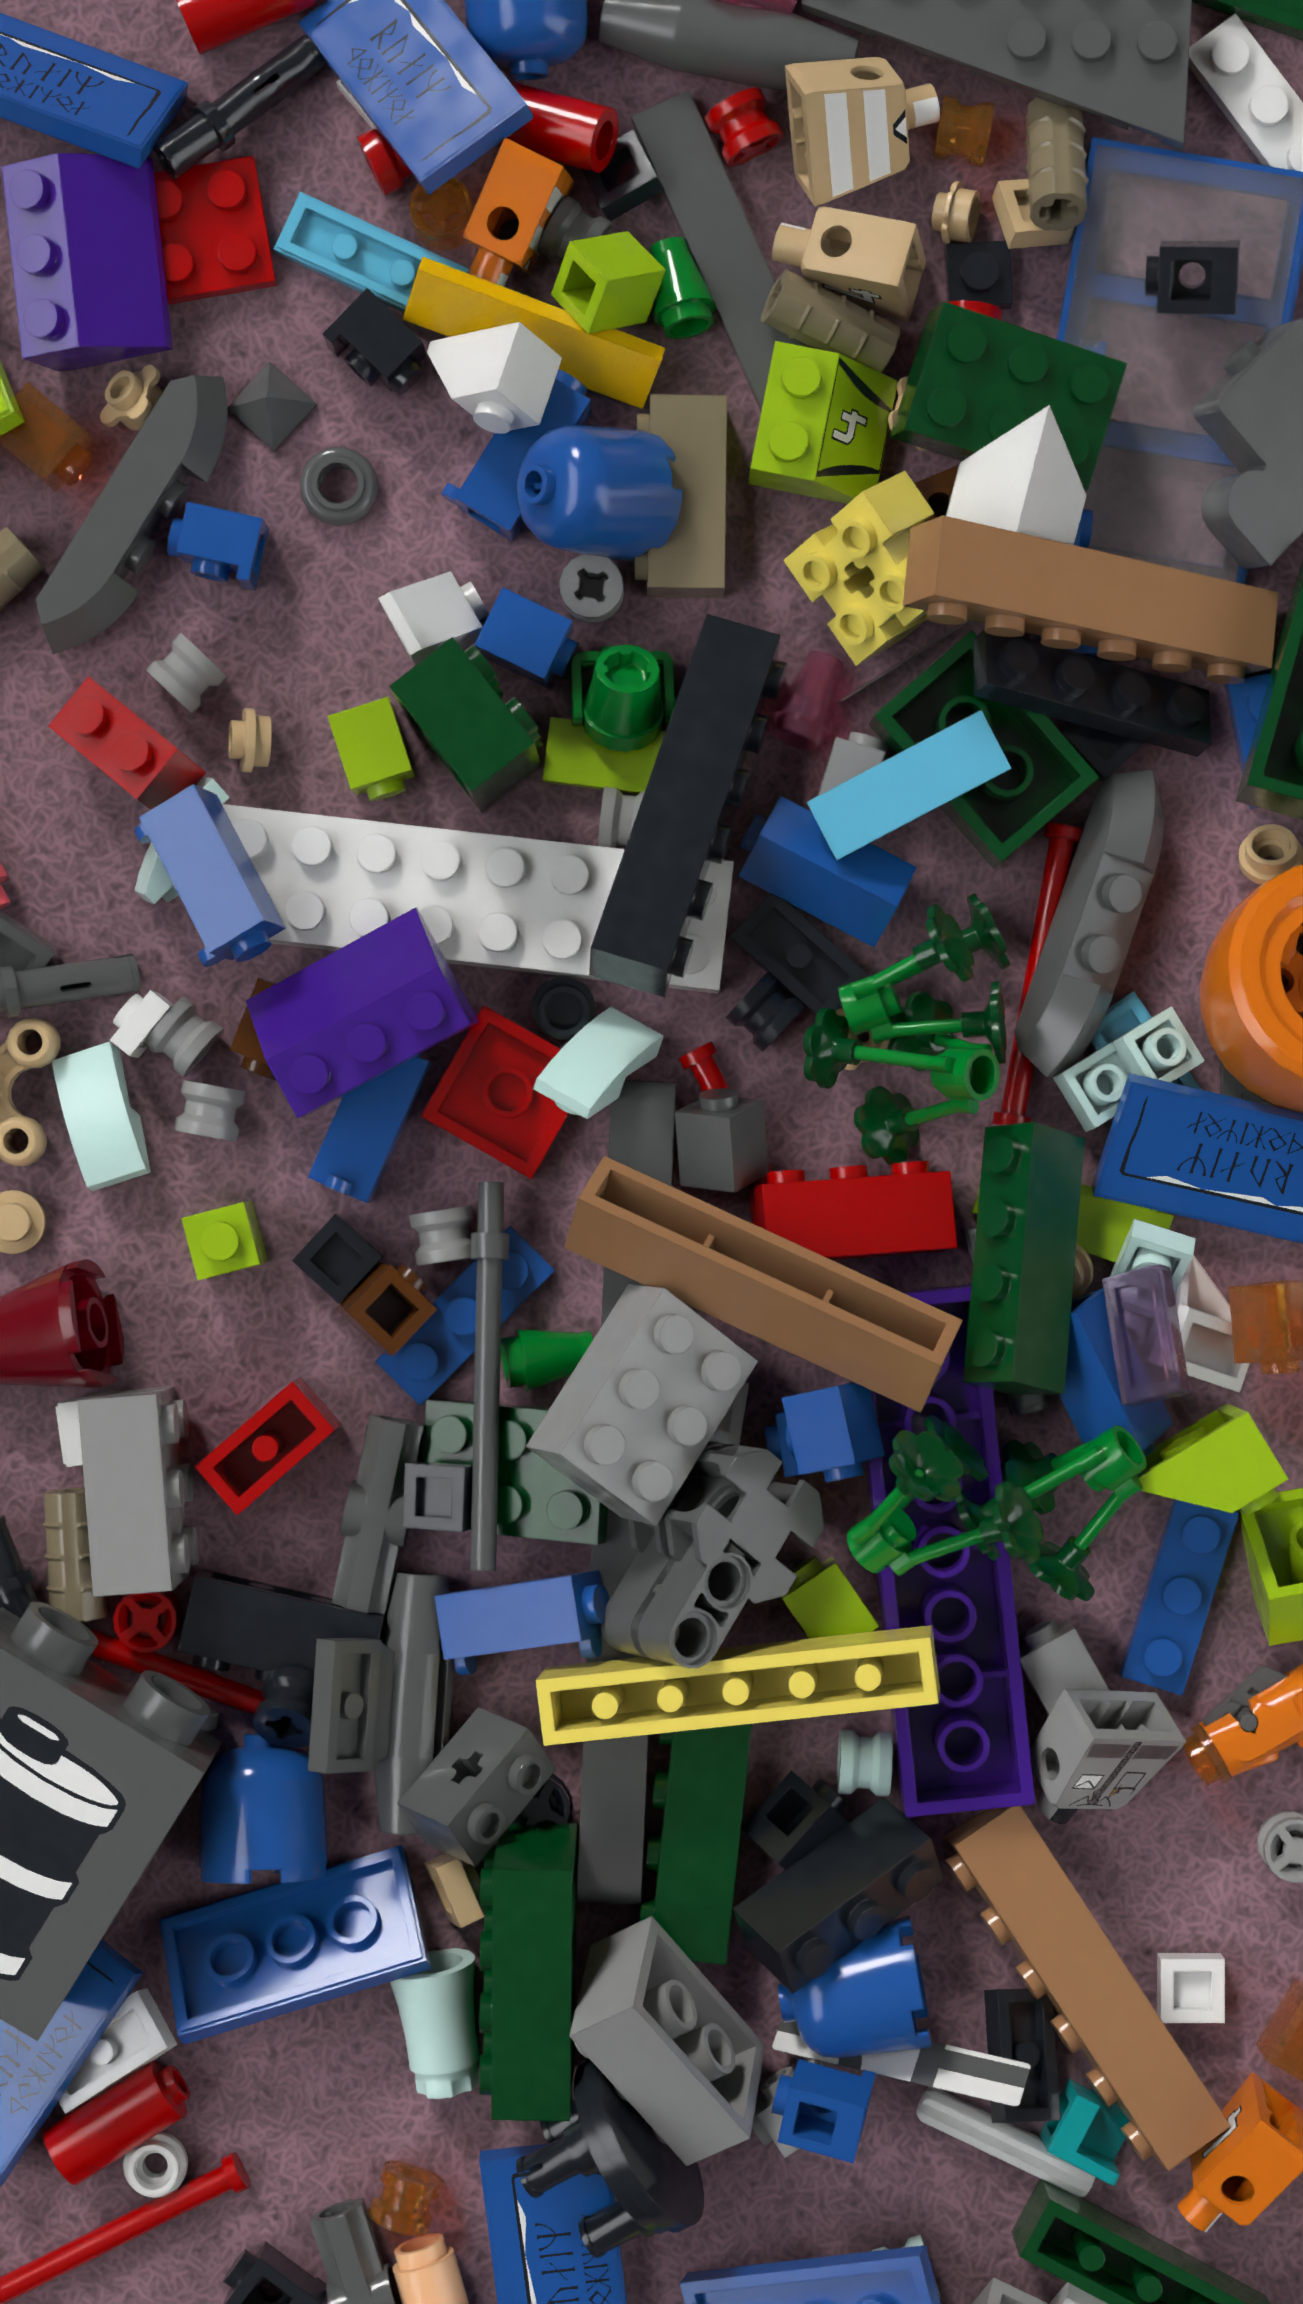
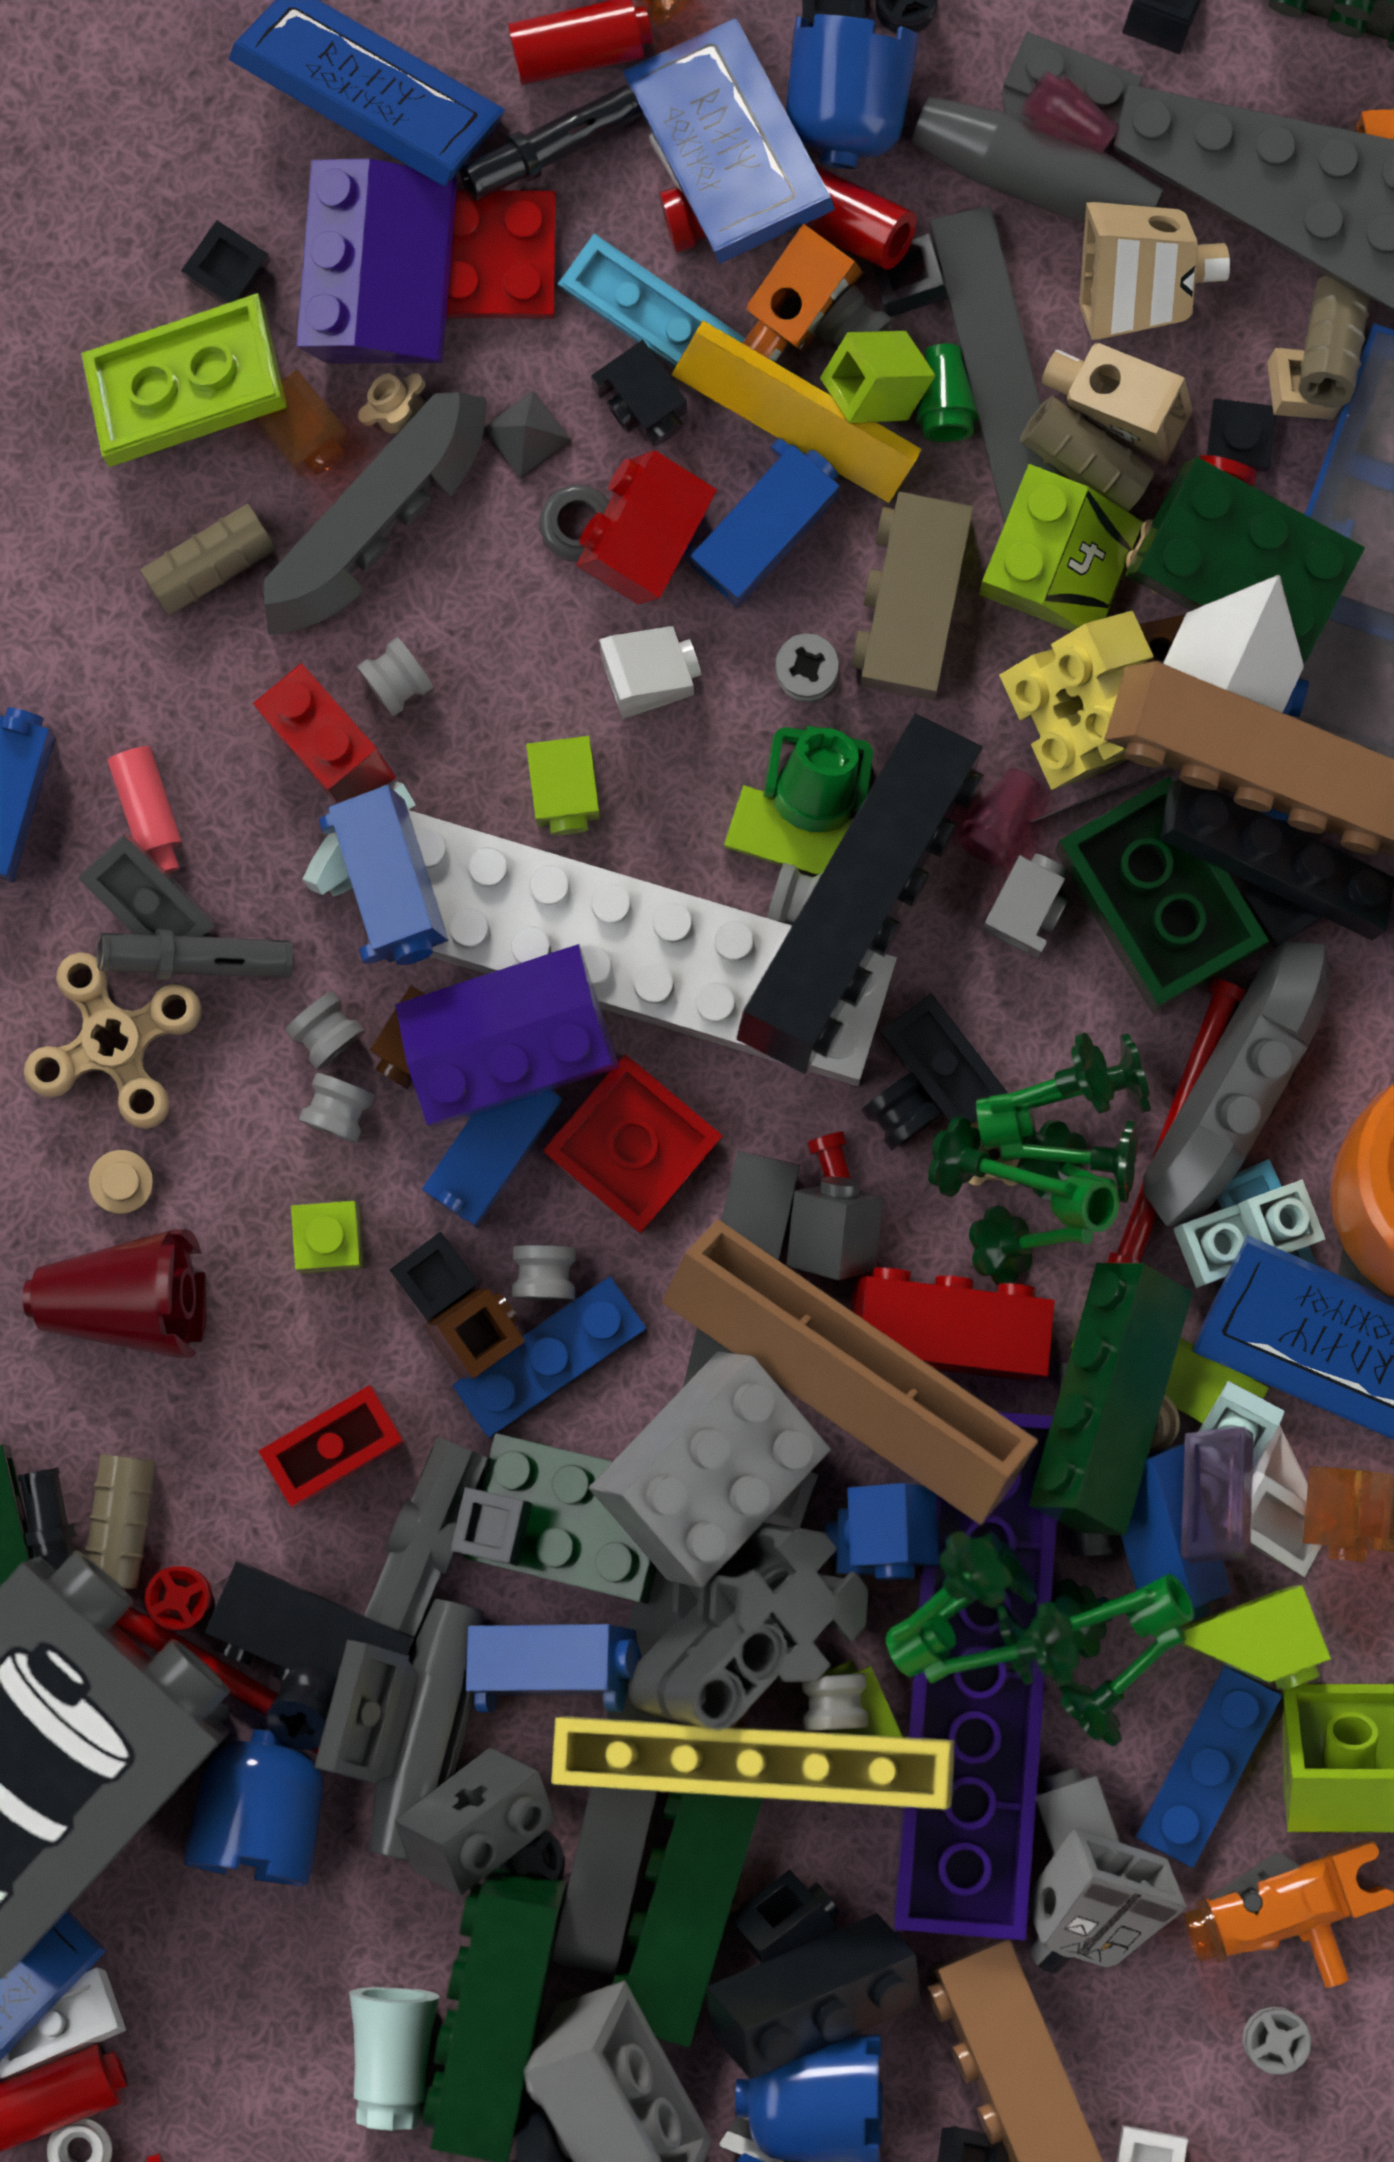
camera: 15 degrees right, 5 degrees down
(69, 1431) = (144, 1399): white tile -> none
(99, 1117) = (227, 1093): light aqua slope -> none
(136, 1490) = (196, 1464): light grey brick -> none
(137, 1020) = (282, 1006): white plate -> none
(219, 543) = (451, 558): blue brick -> none
(250, 740) = (445, 753): tan plate -> none
(293, 1945) = (262, 1949): blue tile -> none
(404, 476) = (644, 526): none -> red brick
(441, 204) = (735, 271): clear orange wheel -> none
(457, 1888) = (433, 1925): tan plate -> none
(460, 714) = (662, 778): dark green brick -> none
(490, 1249) = (586, 1293): dark grey bar -> none
(497, 375) = (753, 447): white slope -> none
(527, 638) = (734, 705): blue brick -> none
(541, 1357) = (615, 1411): green cone -> none
(562, 1006) = (703, 1071): black plate -> none
(596, 1061) = (726, 1128): light aqua slope -> none
(599, 491) = (832, 576): blue cylinder -> none
(743, 126) = (1037, 250): red wheel -> none
(798, 866) = (985, 983): blue brick -> none
(809, 1609) = (835, 1702): none -> light grey wheel
(864, 1762) = (863, 1875): light aqua wheel -> none
(909, 785) = (1080, 914): medium azure tile -> none
(956, 214) = (1230, 371): tan plate -> none
(963, 131) = (1250, 293): clear orange wheel -> none

